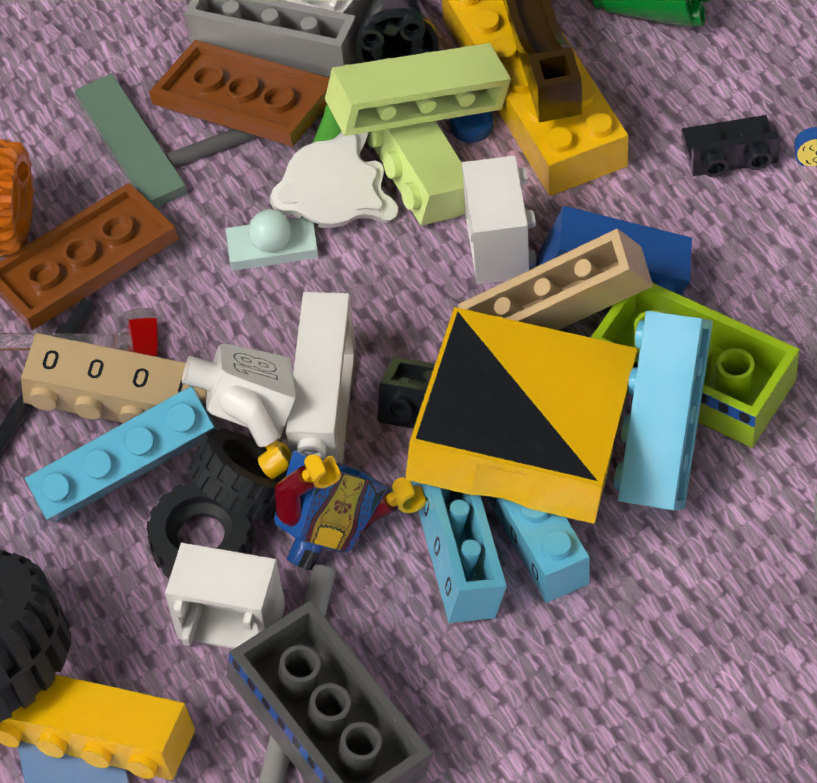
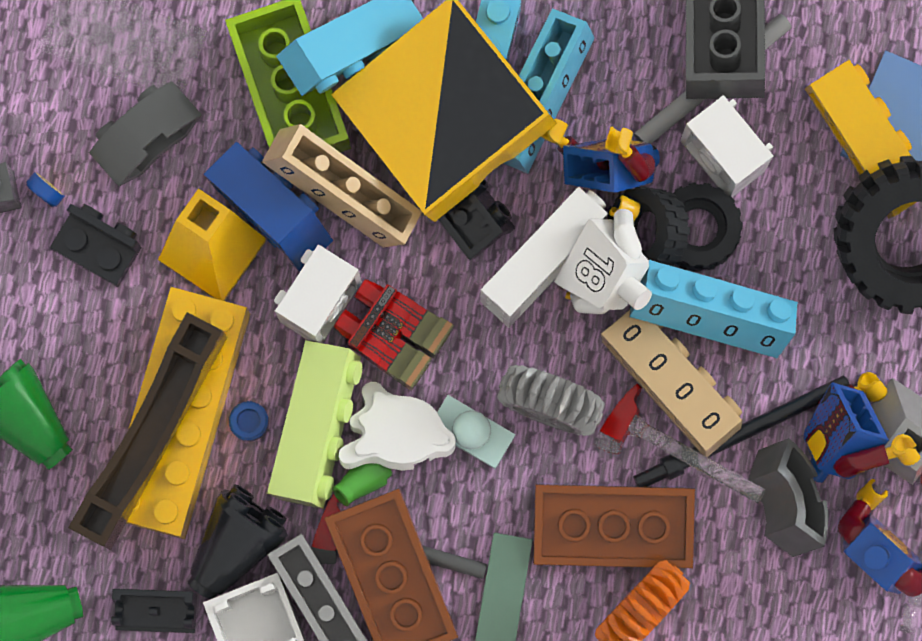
camera: 145 degrees left, 25 degrees up
(214, 283) = (550, 400): none -> light grey gear
(406, 256) = (381, 330): none -> hips
(417, 89) = (286, 435): yellowish green brick -> none
(635, 197) = (210, 246): none -> yellow slope
(777, 238) = (144, 132): none -> dark grey brick

